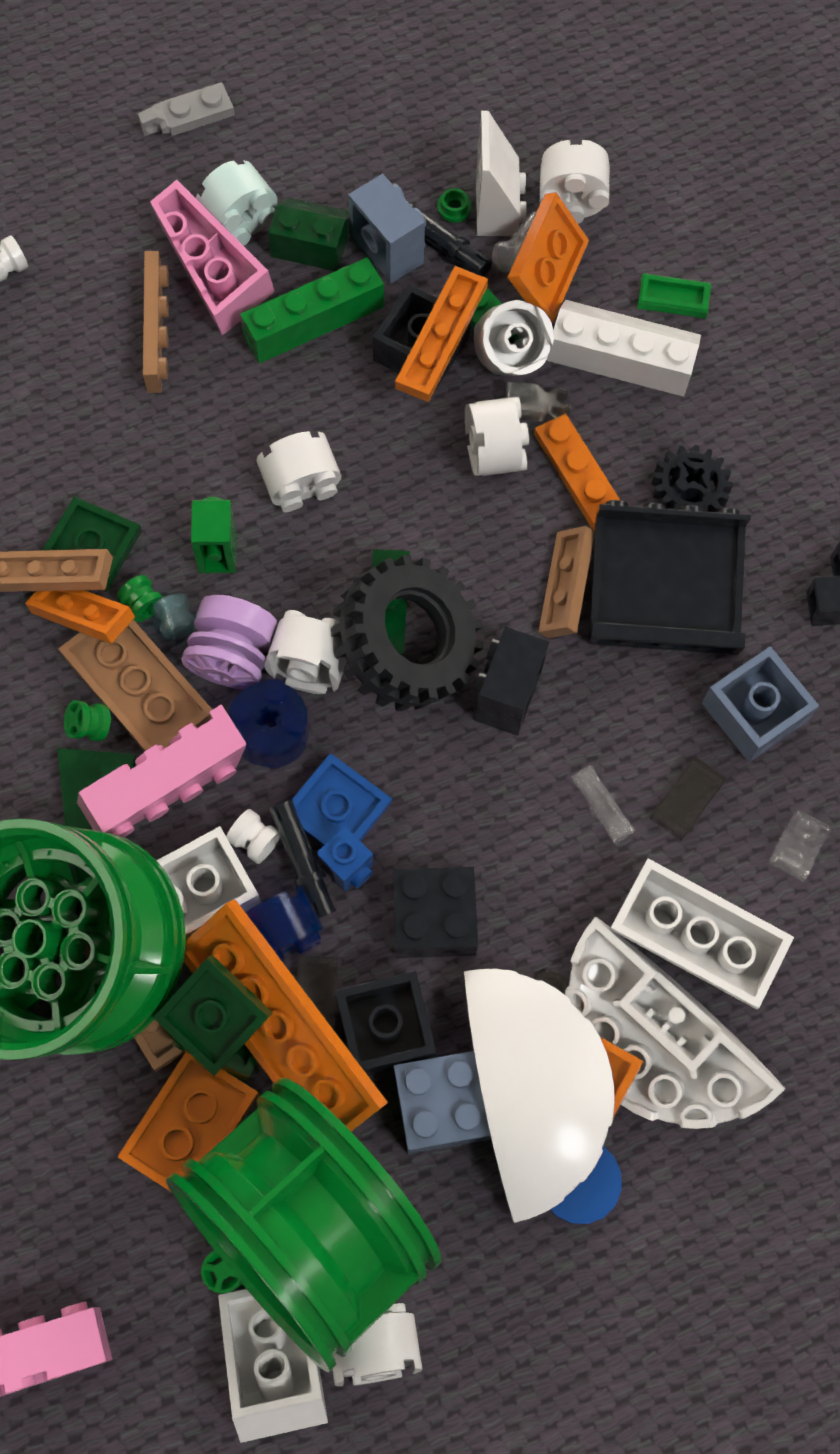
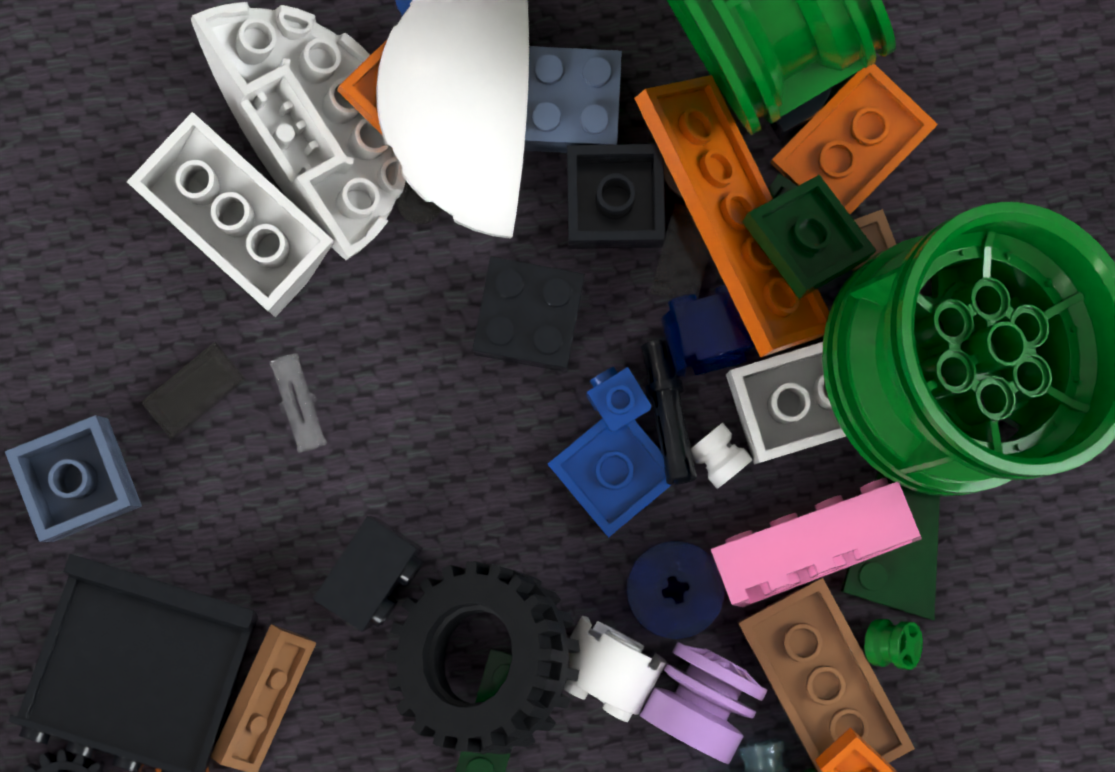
camera: 165 degrees left, 15 degrees up
(799, 845) = (82, 299): clear bracket -> none

